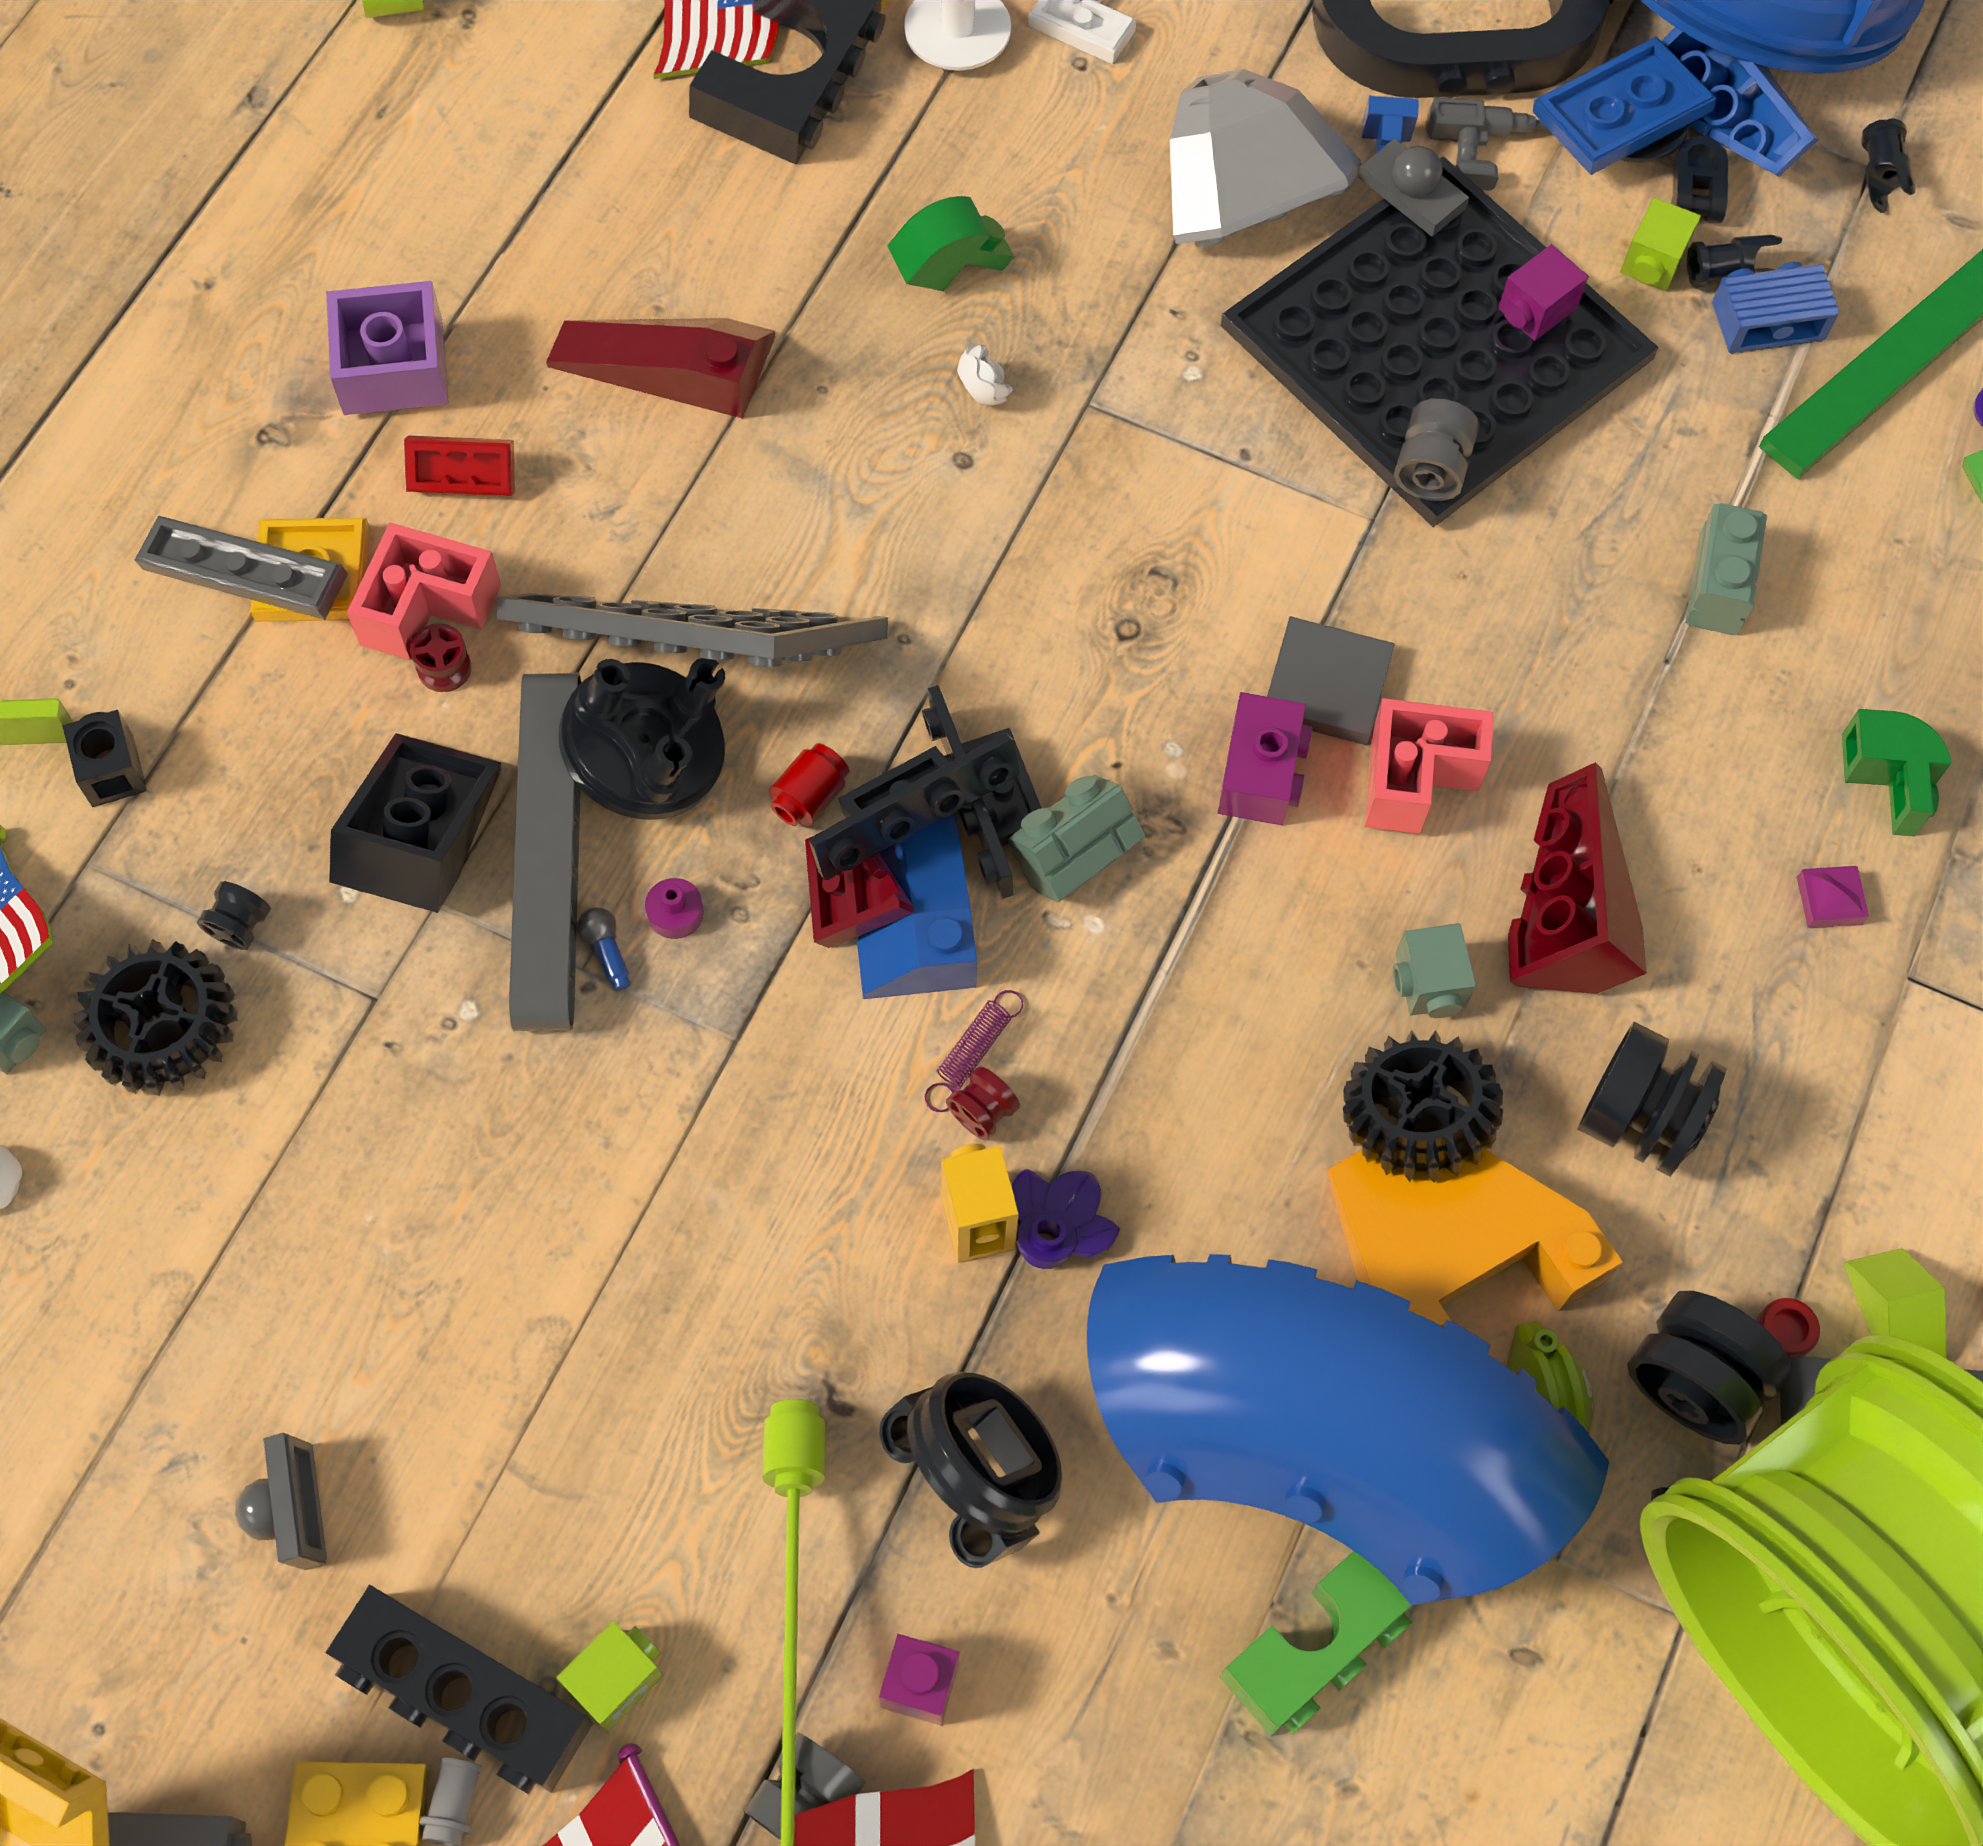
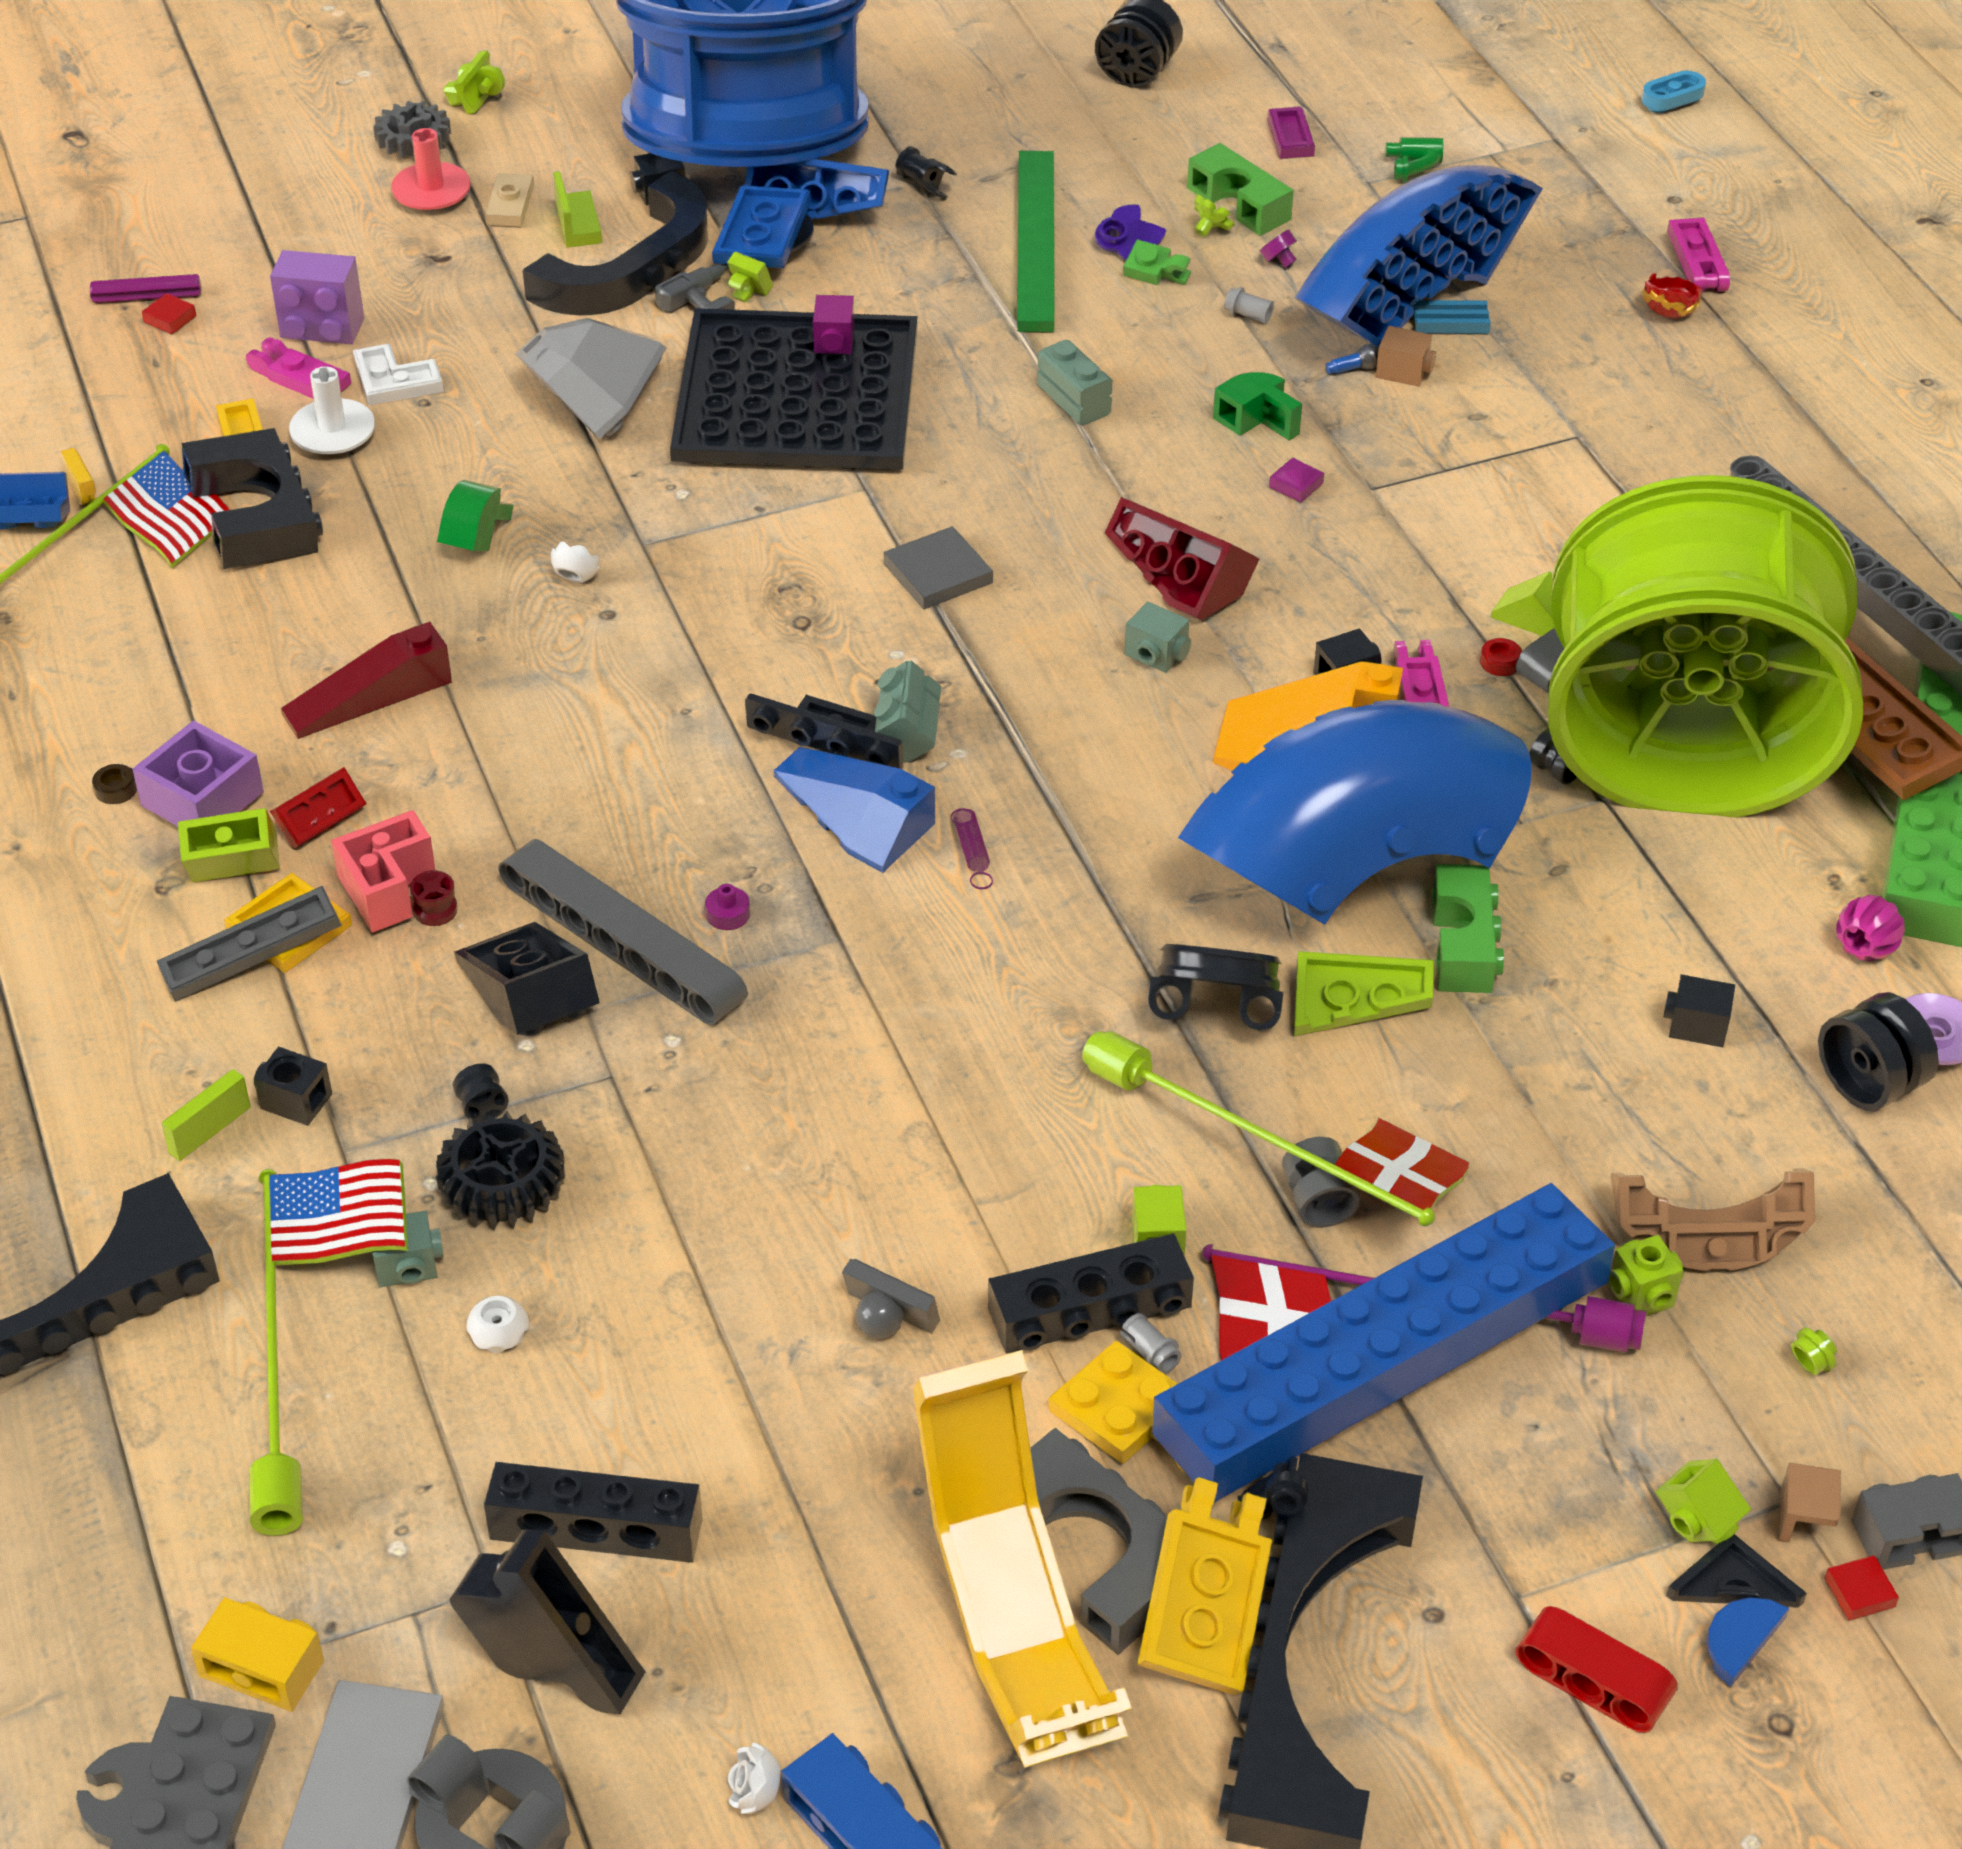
camera: 45 degrees left, 20 degrees down
(331, 444) = (228, 845): none -> lime brick
(343, 276) = (114, 784): none -> dark brown tile
(598, 930) = (722, 952): piece -> none
(644, 737) = (611, 834): black piece -> none
(761, 633) = (576, 766): dark grey wing -> none
(808, 785) = (730, 797): red brick -> none
(854, 900) = (817, 817): dark red wing -> none
(910, 800) = (807, 742): black bracket -> none
(919, 1679) = (1309, 1093): magenta brick -> none
(978, 1202) = (1073, 883): yellow brick -> none
(983, 1103) = (1012, 855): dark red wheel -> none
(1062, 1210) = (1113, 875): dark purple plate -> none
(1125, 1598) = (1357, 988): none -> lime wing
(1262, 759) = (953, 616): magenta brick -> none
(1389, 119) = (644, 313): blue tile -> none
(1414, 185) = (700, 324): dark grey tile -> none
(1420, 749) = (1036, 555): coral brick -> none
(1431, 1123) = (1228, 687): black gear -> none
(1436, 449) = (872, 420): flat silver wheel -> none
(1541, 158) = (748, 276): none -> lime tile
(1601, 1184) = (1344, 651): none -> black brick
(1644, 1287) = (1421, 674): none -> dark pink hinge
(1653, 1099) = (1328, 599): black wheel -> none
(1660, 244) = (858, 274): lime brick -> none
(1701, 165) = (833, 232): black plate -> none
(1710, 1367) = (1494, 675): black wheel -> none
(1719, 260) = (903, 260): black piece -> none
(1775, 307) = (951, 264): blue brick -> none

